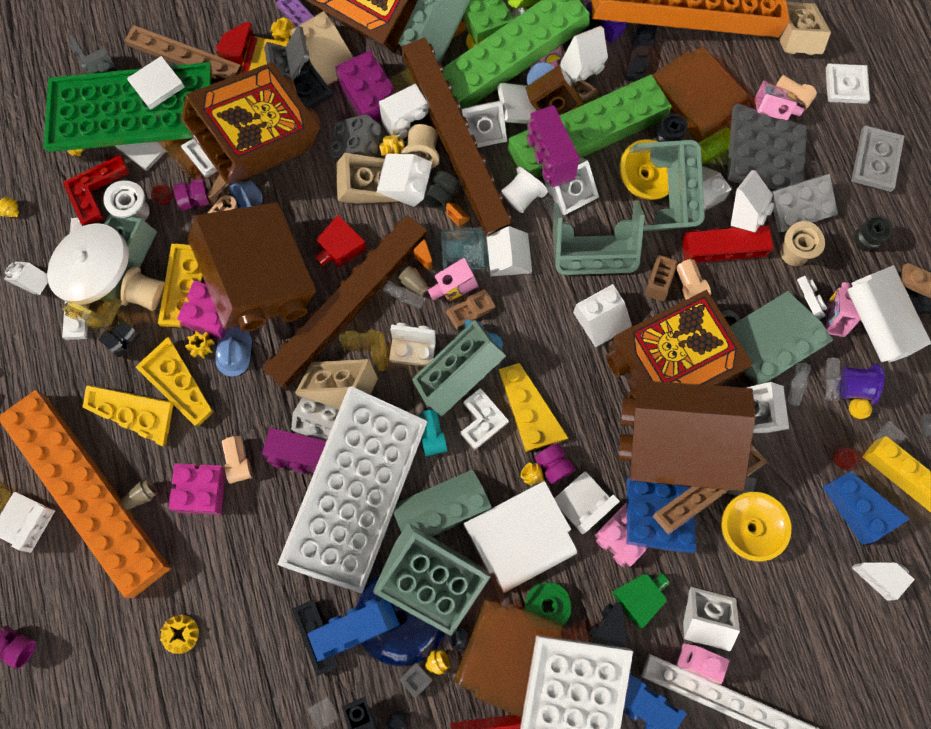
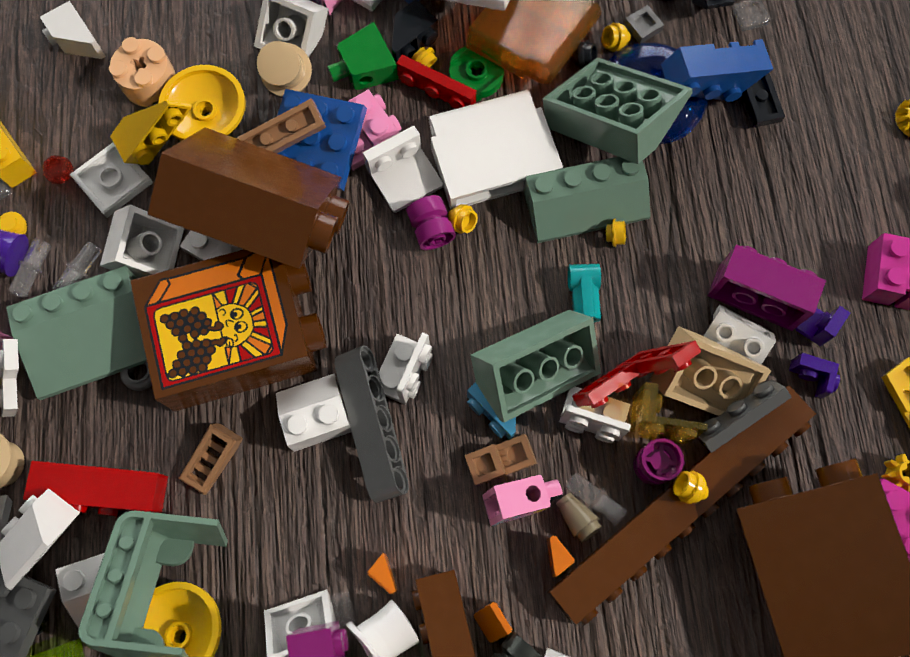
camera: 165 degrees left, 0 degrees up
(234, 352) = (855, 443): medium blue piece -> none
(237, 465) = (851, 294): light nougat piece -> none
(255, 437) = (823, 325): none -> dark purple bracket
(262, 406) = (814, 369): none -> dark purple bracket
(312, 359) = (743, 414): none -> dark grey plate
(339, 243) = (688, 602): red torso -> none
(345, 302) = (690, 487): none -> yellow plate
(353, 491) = (701, 225): white plate -> none
(366, 318) = (658, 462): none -> magenta wheel
(387, 383) = (642, 363): none -> red plate
(414, 484) = (616, 232): none -> yellow plate
(462, 244) = (497, 560): clear light blue slope -> none
(488, 419) = (506, 295): white plate -> none
(509, 252) = (426, 538): white slope -> none
(531, 225) = (382, 574): none -> orange slope
(532, 416) = (446, 299): yellow wing -> none
(550, 356) = (403, 366): none -> white bracket
(562, 313) = (371, 424): none -> dark grey beam
(578, 584) = (434, 83): none -> red plate
(593, 607) = (425, 56): none -> yellow plate
(598, 253) = (288, 514): sand green windscreen -> none
(691, 279) = (167, 433): light nougat piece -> none
(703, 573) = (283, 67): none -> tan piece
(788, 491) = (146, 131): none -> yellow slope
(803, 460) = (110, 180): none -> white tile
(825, 552) = (141, 70): none -> light nougat brick
(863, 508) = (64, 103): blue wedge -> none

